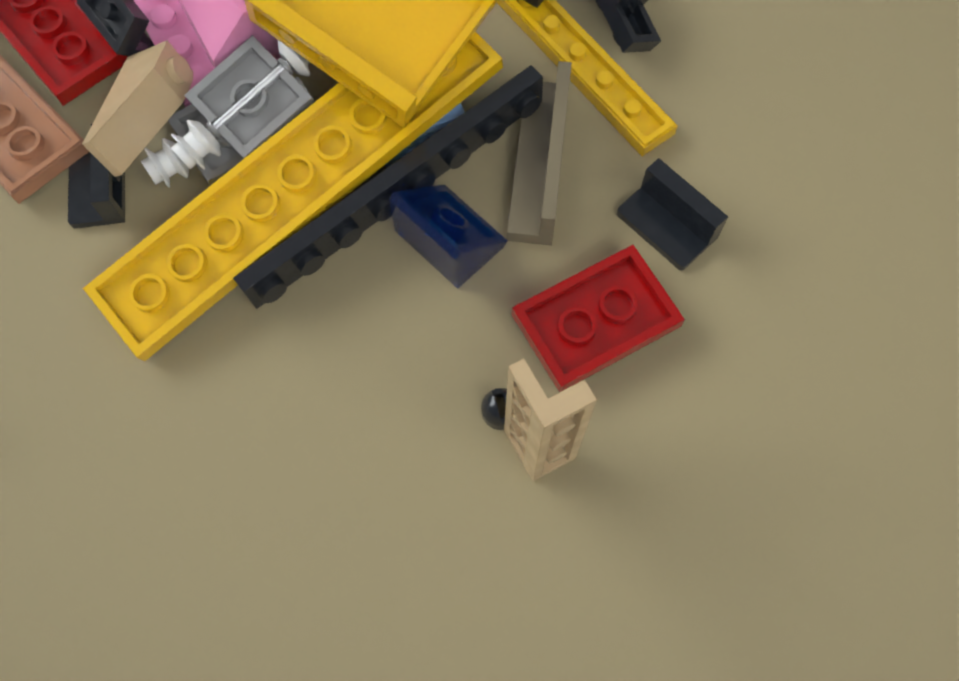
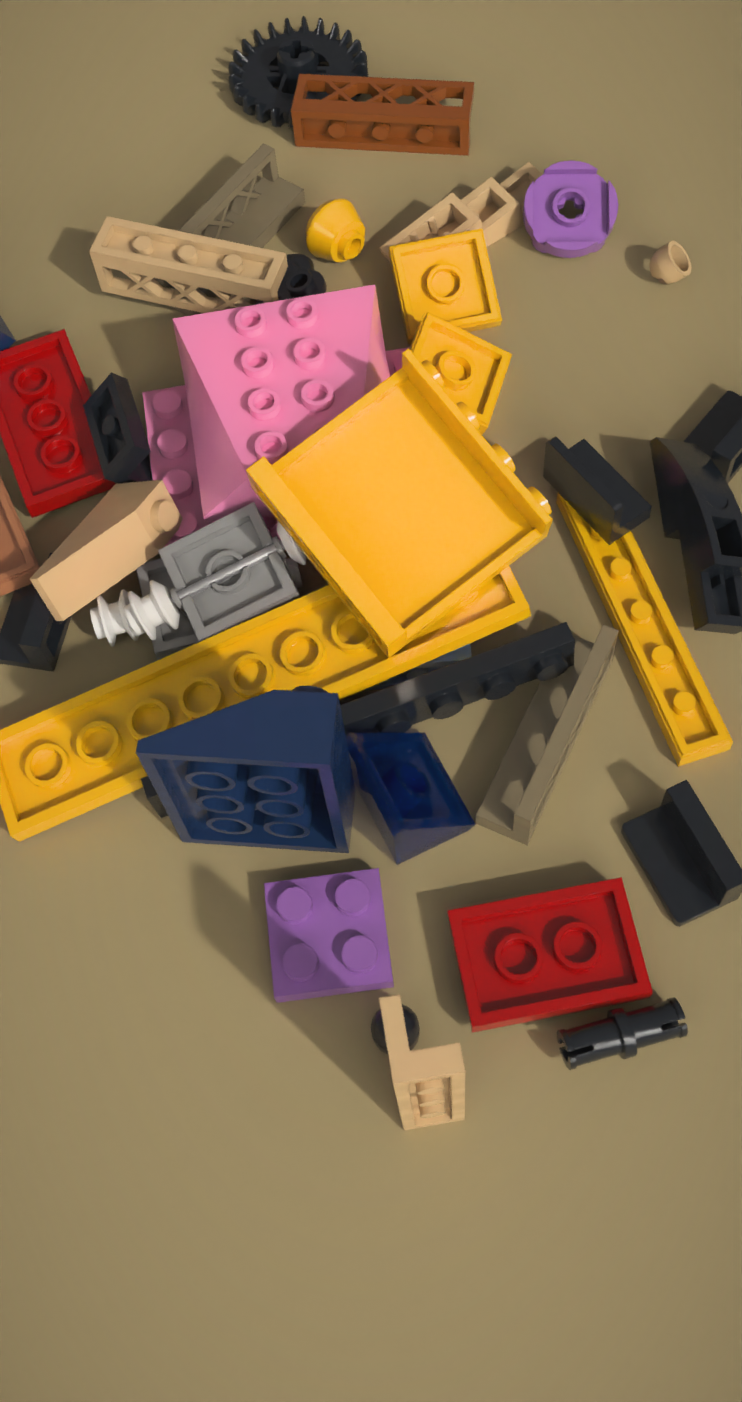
camera: 25 degrees right, 5 degrees down
(332, 238) = (258, 773): none -> dark blue slope
(424, 356) = (327, 935): none -> medium lavender plate
(671, 357) = (622, 1033): none -> black pin

